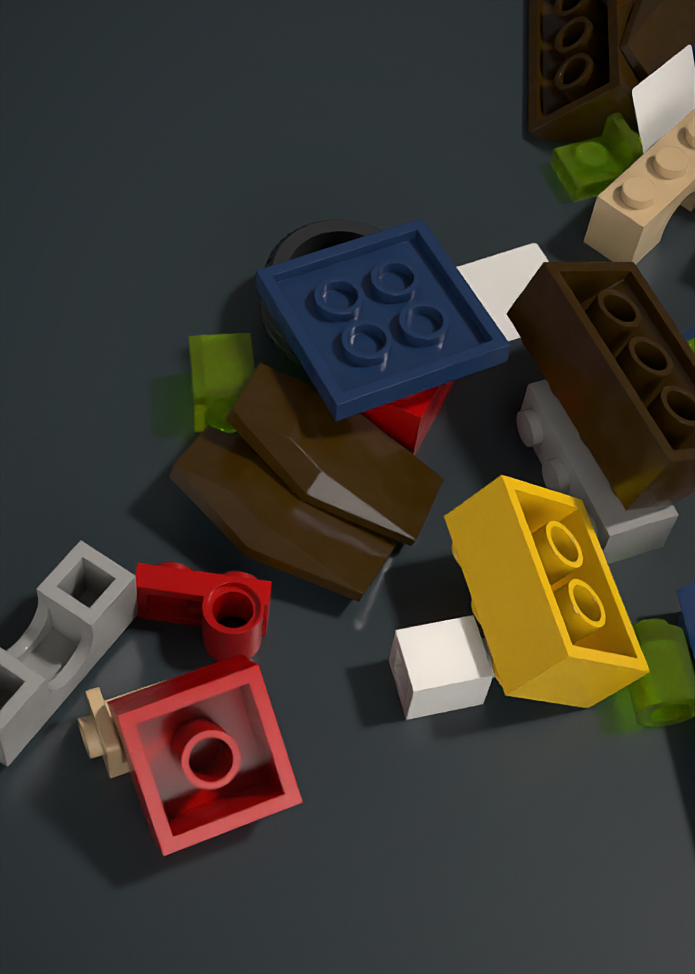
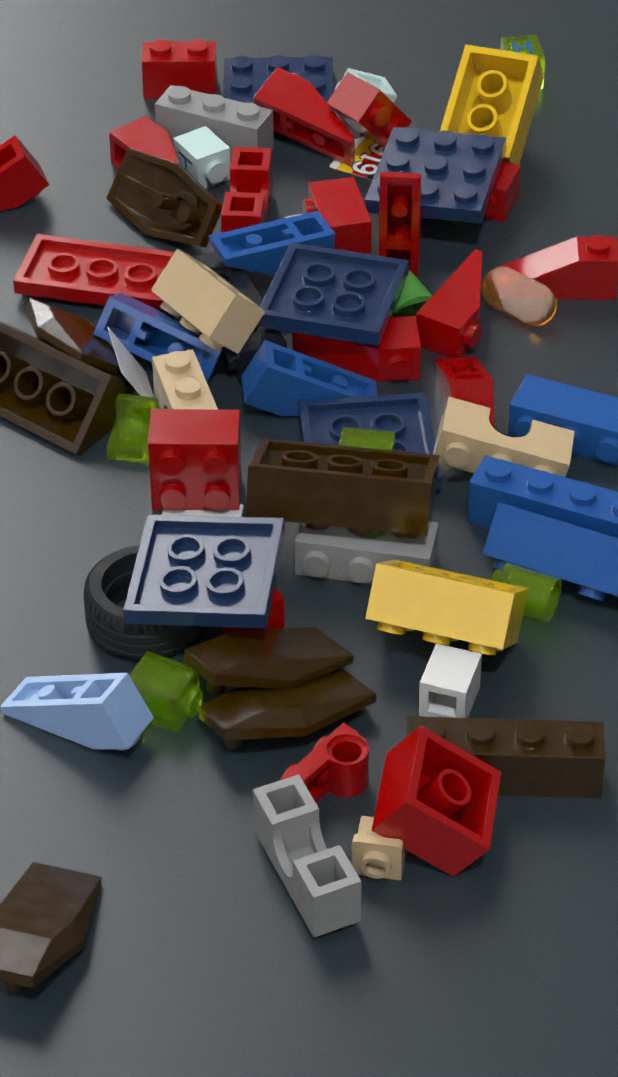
camera: 50 degrees left, 15 degrees down
(143, 326) = (85, 709): none -> light blue slope
(361, 798) = (533, 755): none -> dark brown brick
(576, 211) = (195, 459): none -> red brick

